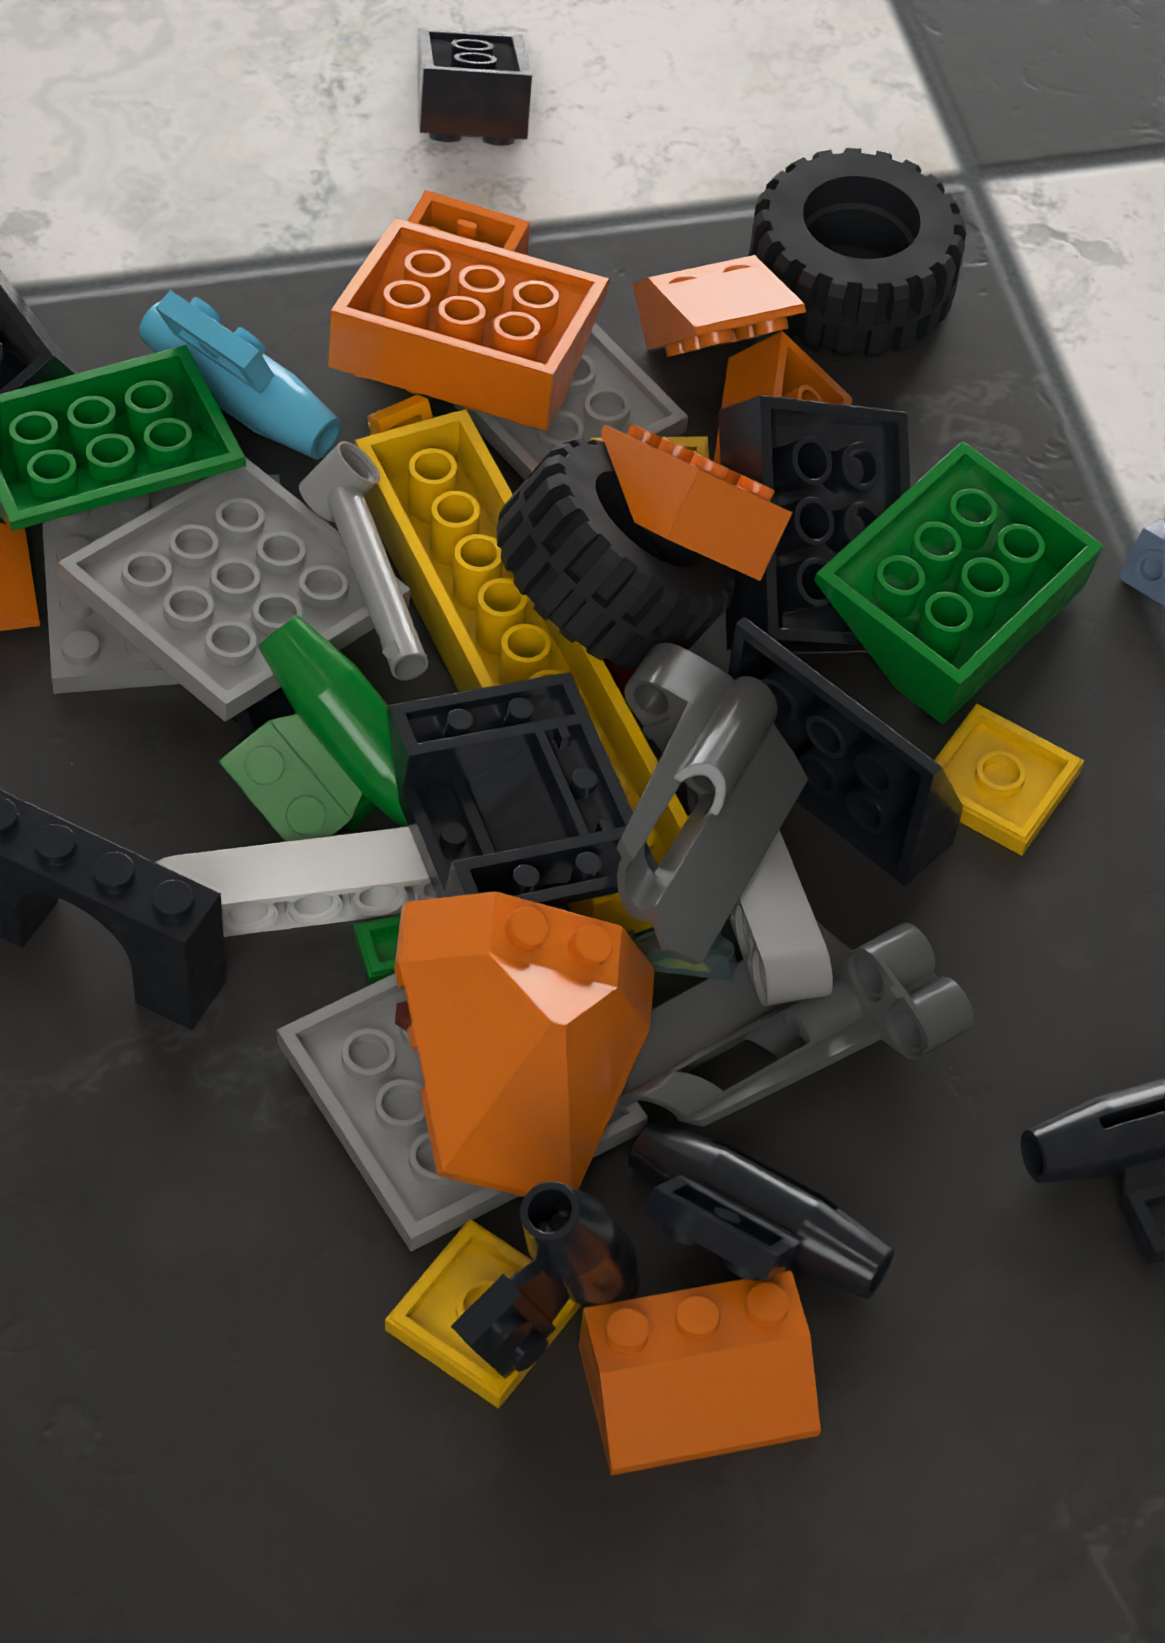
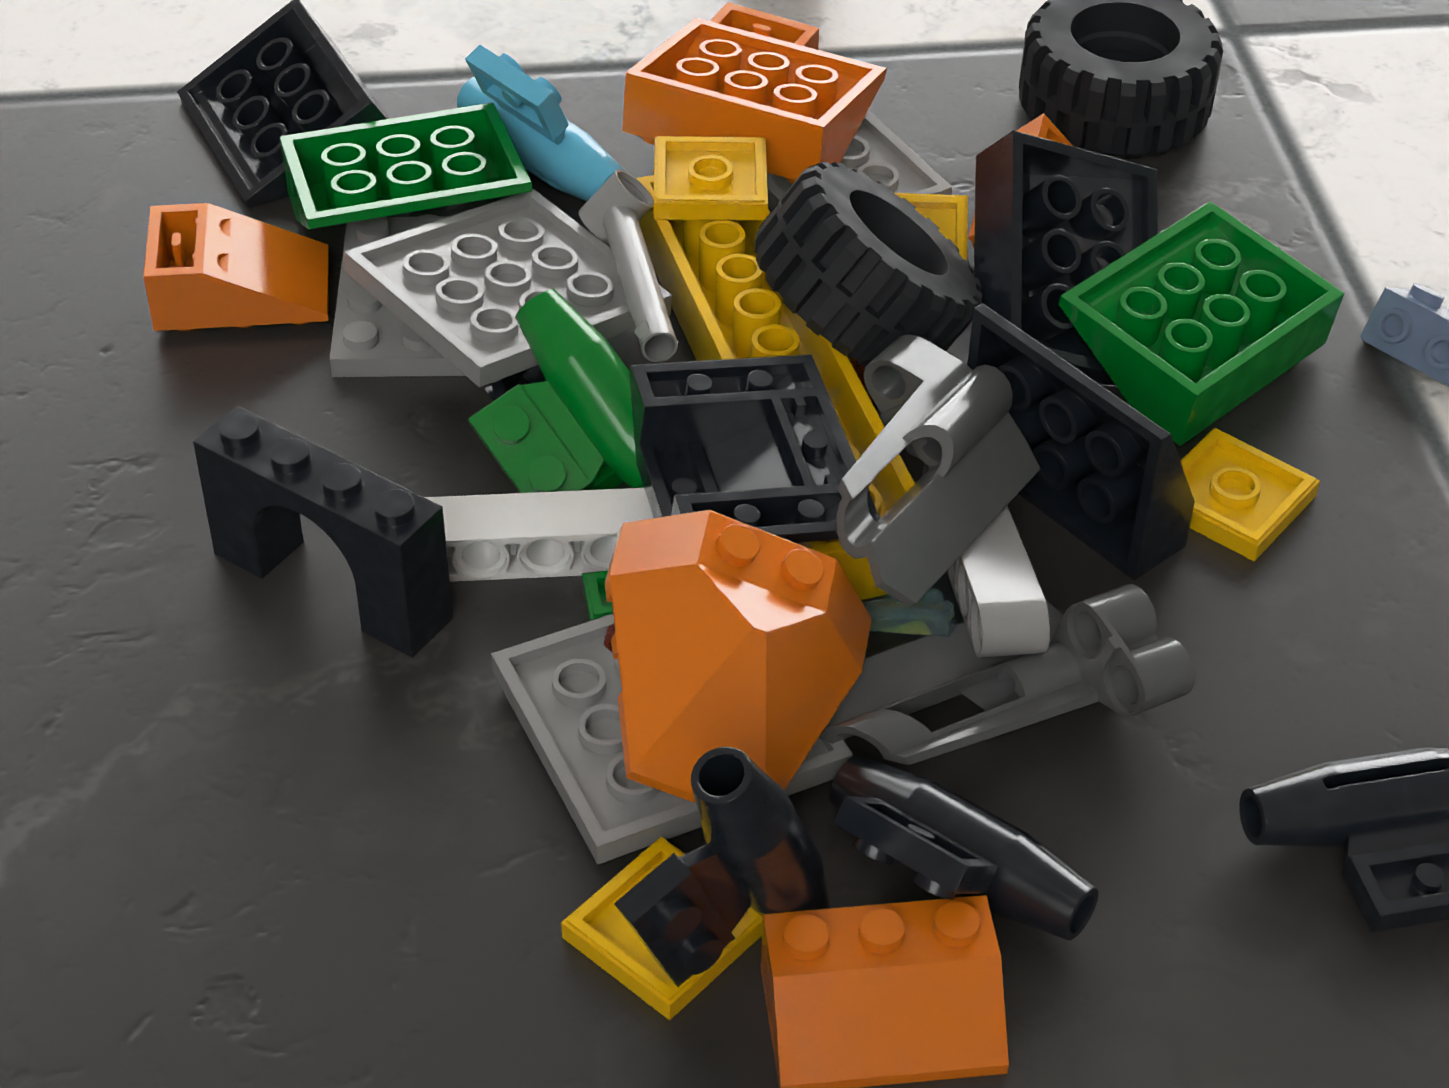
camera: 10 degrees right, 10 degrees down
(436, 440) = (710, 178): none -> yellow tile
(696, 500) = (950, 217): orange slope -> none
(713, 305) = (980, 100): slope -> none

